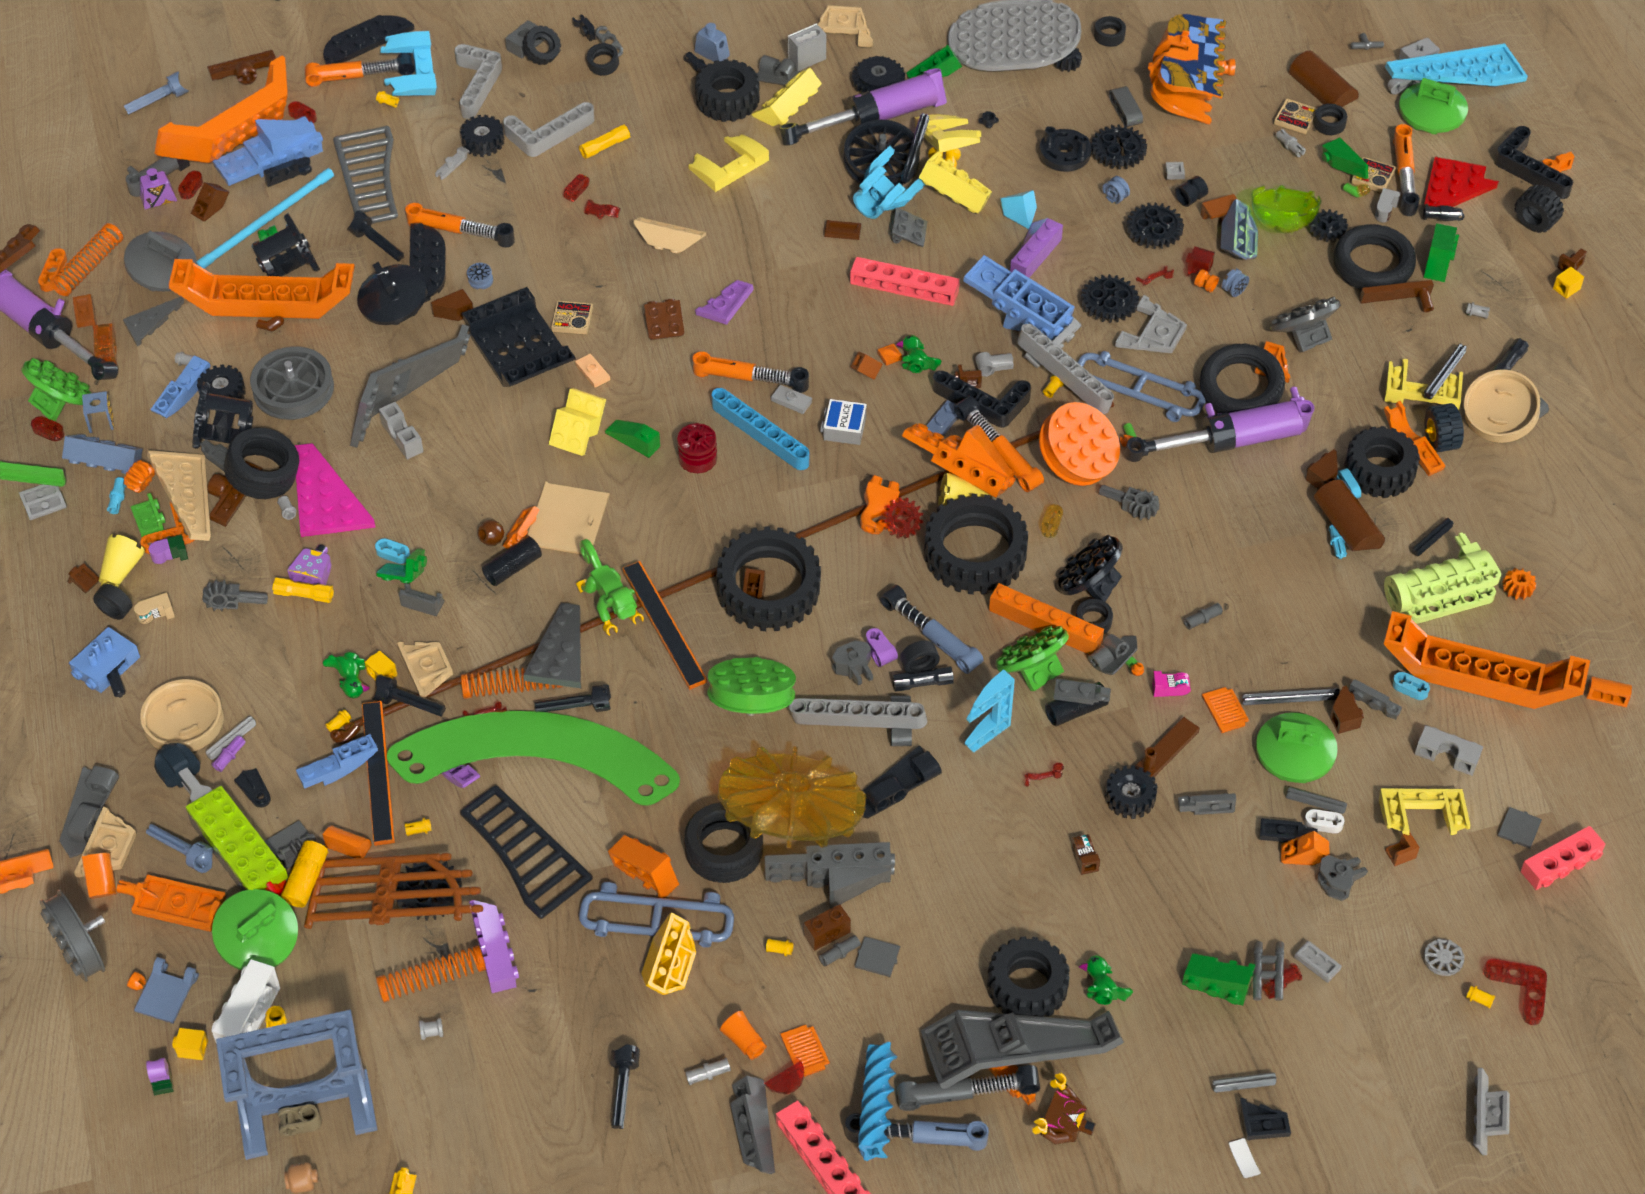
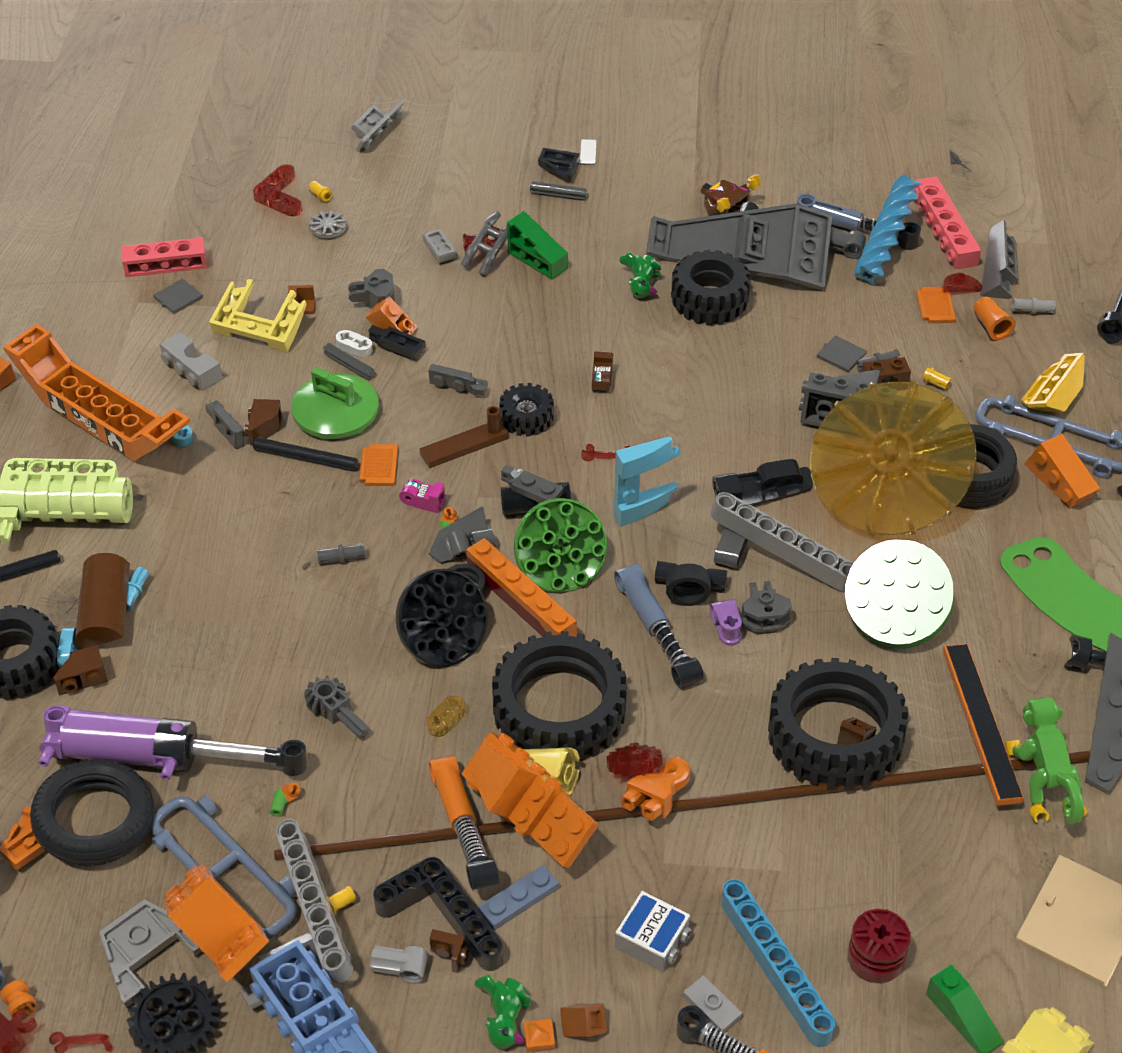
camera: 160 degrees left, 5 degrees down
(1079, 444) = (364, 770): orange wheel -> none
(1115, 332) = (214, 921): none -> orange bracket

